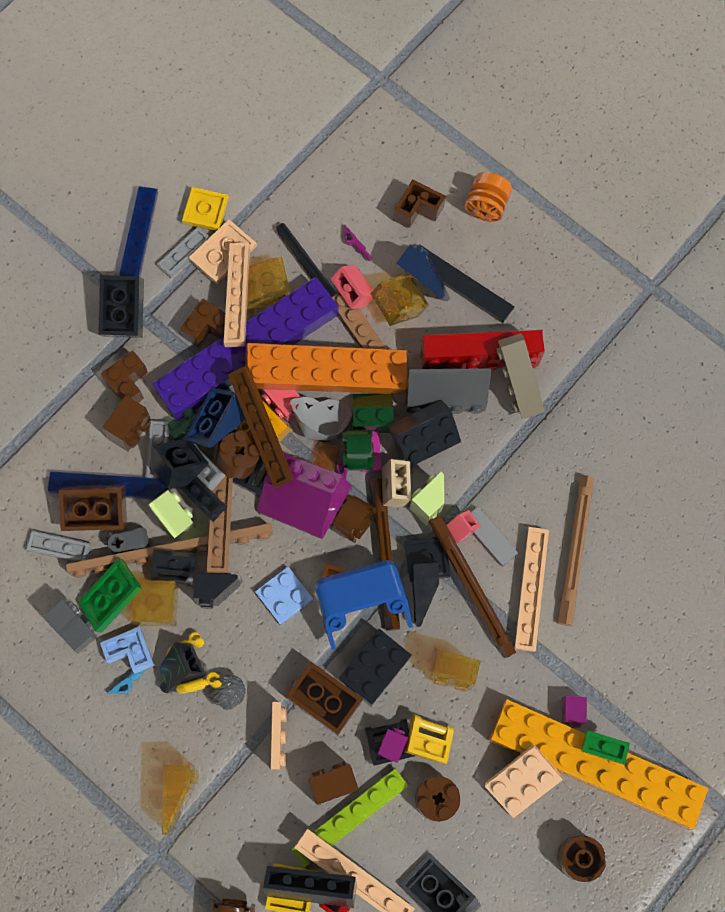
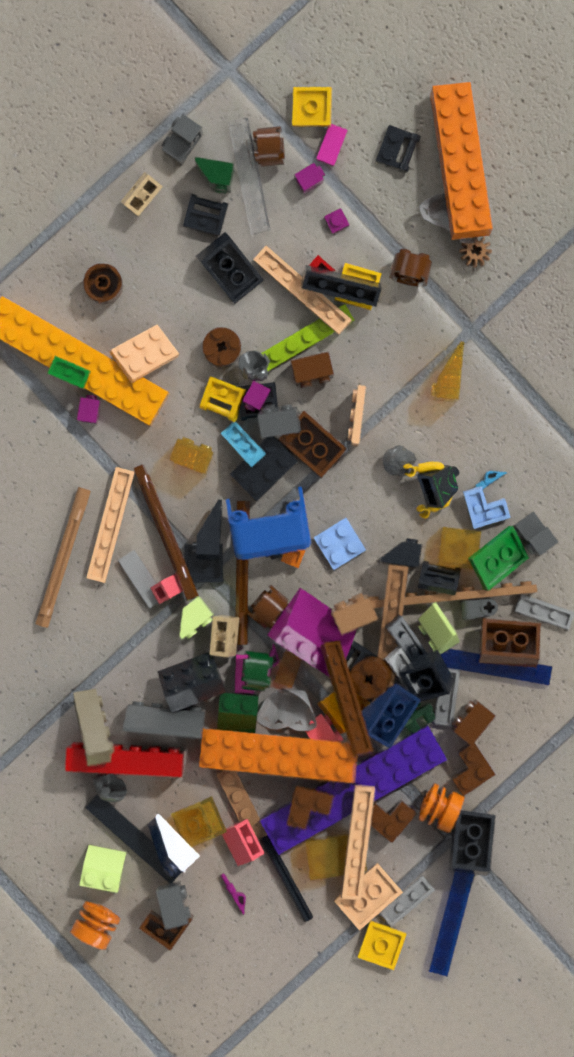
camera: 170 degrees left, 15 degrees up
(154, 337) = (441, 808): none -> orange wheel
(261, 516) = (353, 613): none -> medium nougat brick
(290, 325) = (308, 800): none -> reddish brown brick
(365, 718) = (278, 421): none -> dark grey brick
(399, 780) = (254, 365): none -> dark grey hair
(401, 689) = (243, 443): none -> medium azure plate
(417, 219) = (172, 905): none -> dark grey brick
(488, 250) = (103, 868): none -> yellowish green slope
(491, 322) = (110, 787): none -> dark grey hair

